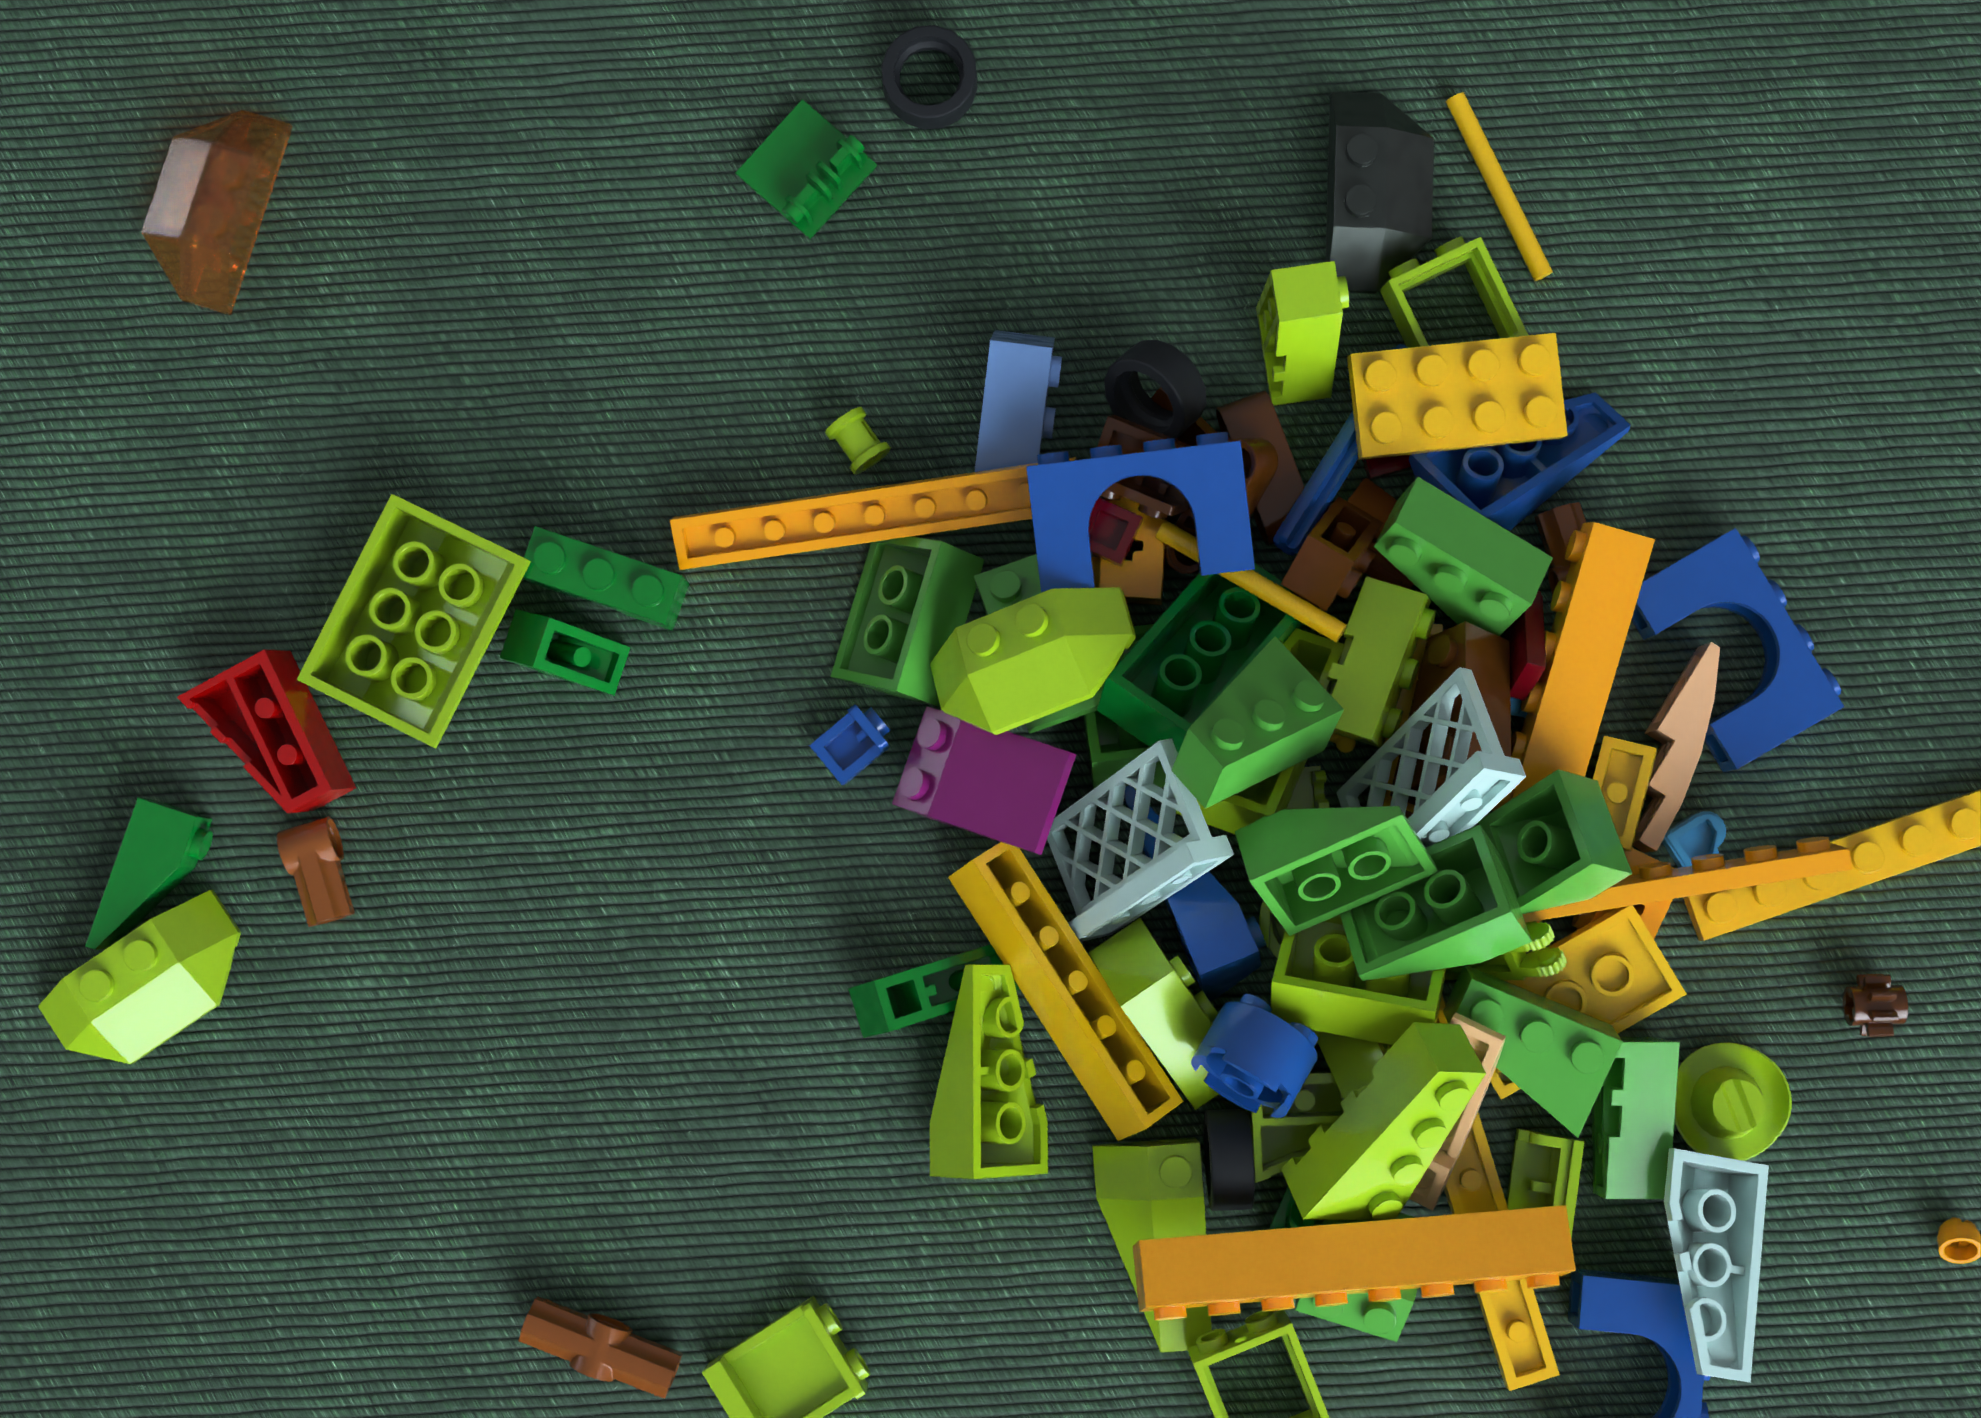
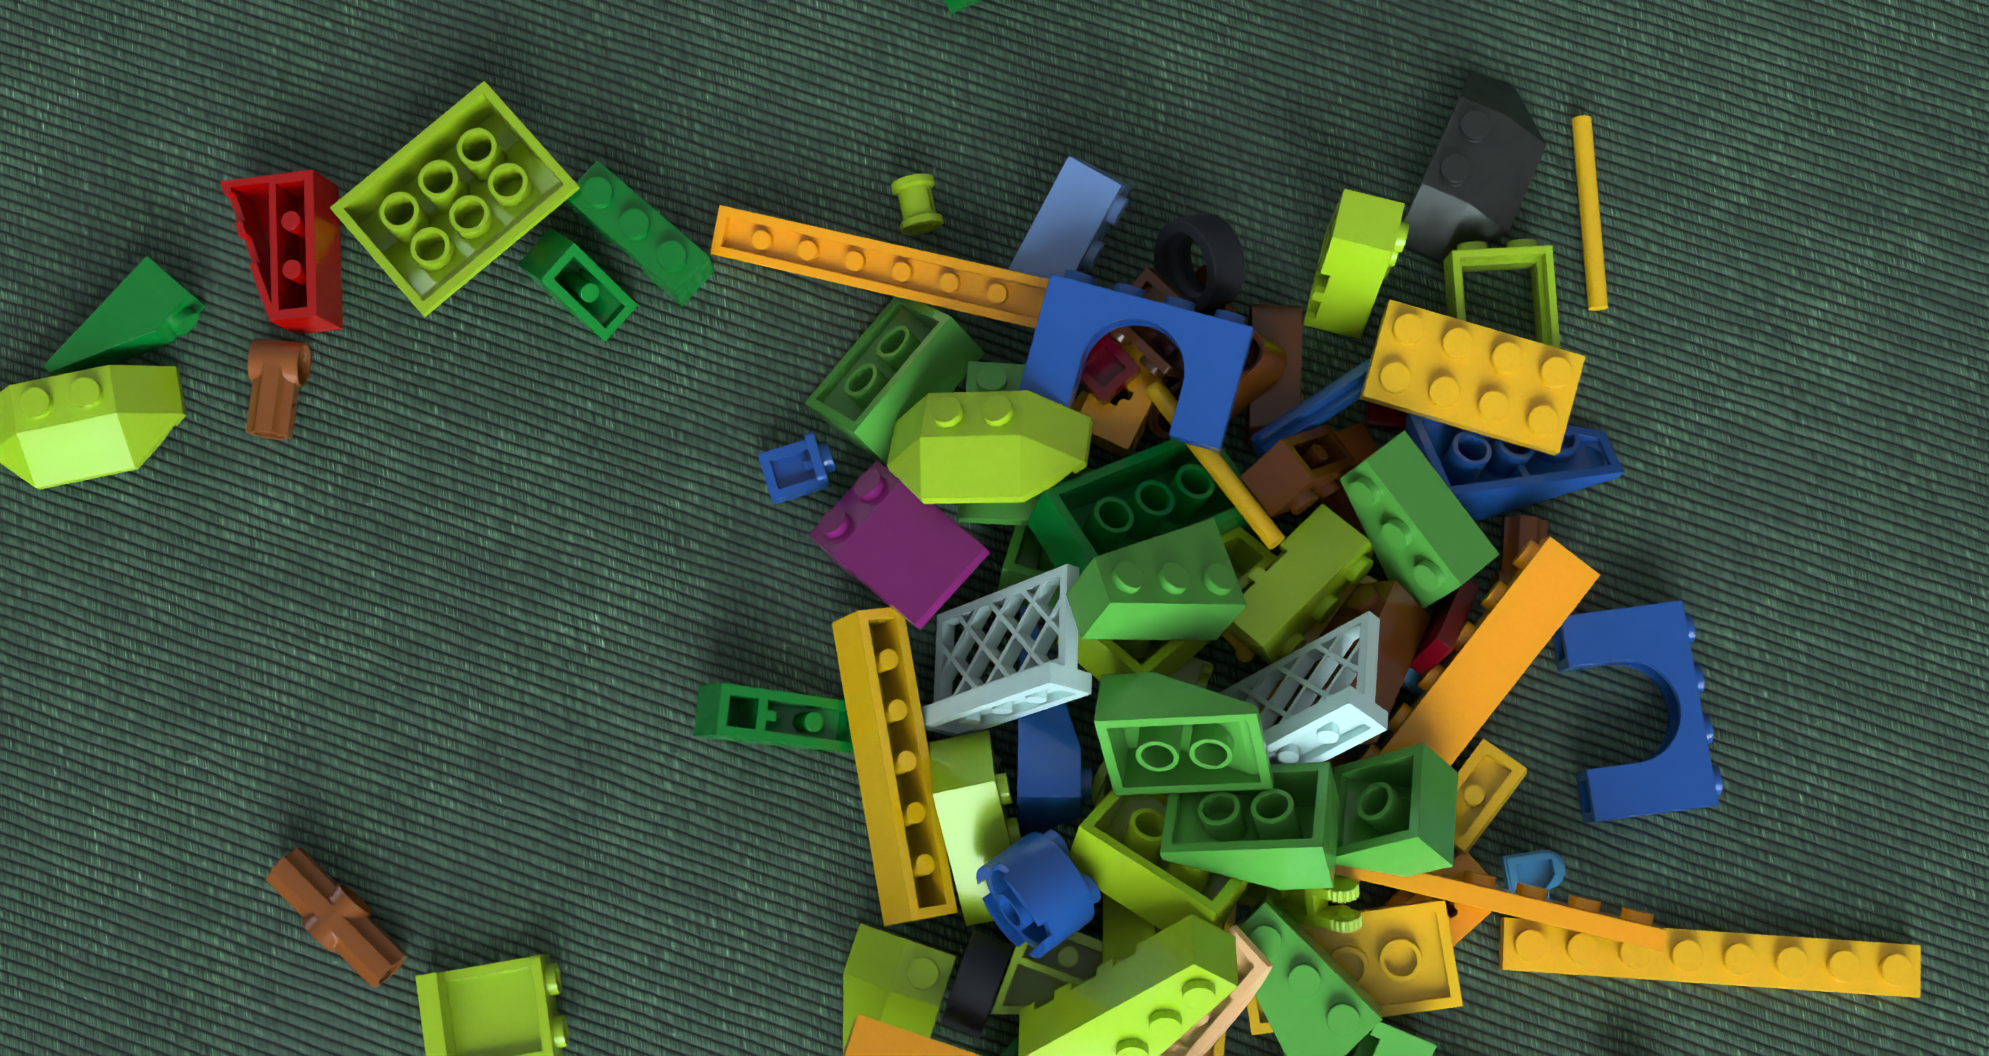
camera: 20 degrees right, 5 degrees down
(984, 1099) = (781, 833): lime wedge -> none
(1681, 730) = (1557, 770): light nougat slope -> none

